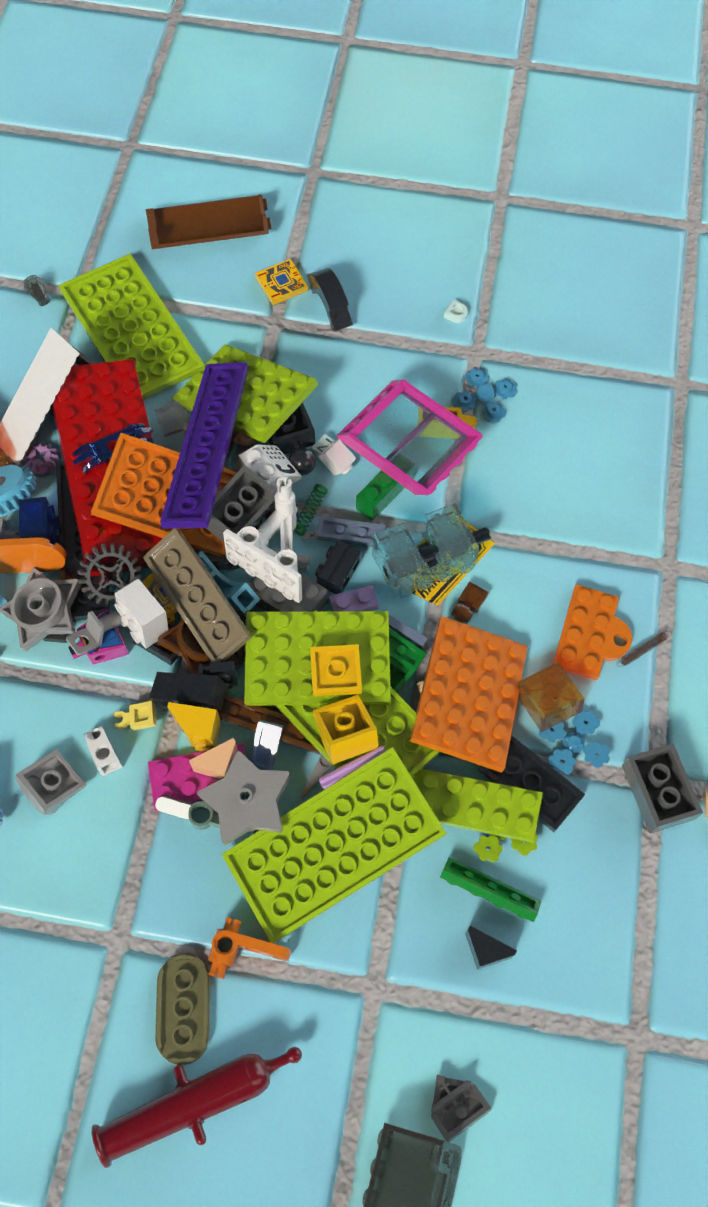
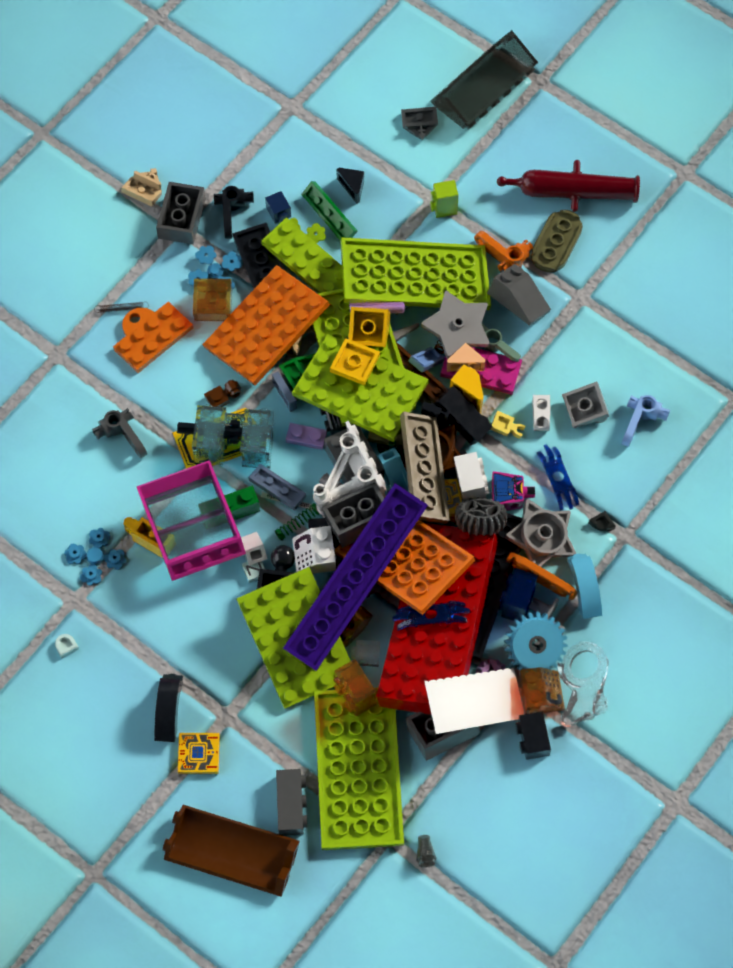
camera: 150 degrees left, 0 degrees up
(59, 698) = (559, 487): none -> clear blue piece
(93, 632) = (511, 485): light grey bracket -> none
(160, 365) = (355, 688): none -> clear orange brick
(177, 275) = (291, 802): none -> dark grey brick
(191, 887) = (519, 294): none -> dark grey slope
(338, 567) = (303, 462): black brick -> none
(354, 978) = (444, 199): none -> lime brick
(540, 515) = (107, 429): none -> dark grey piece
(555, 862) = (278, 207): none -> dark blue brick
(606, 852) = (240, 198): none -> black piece

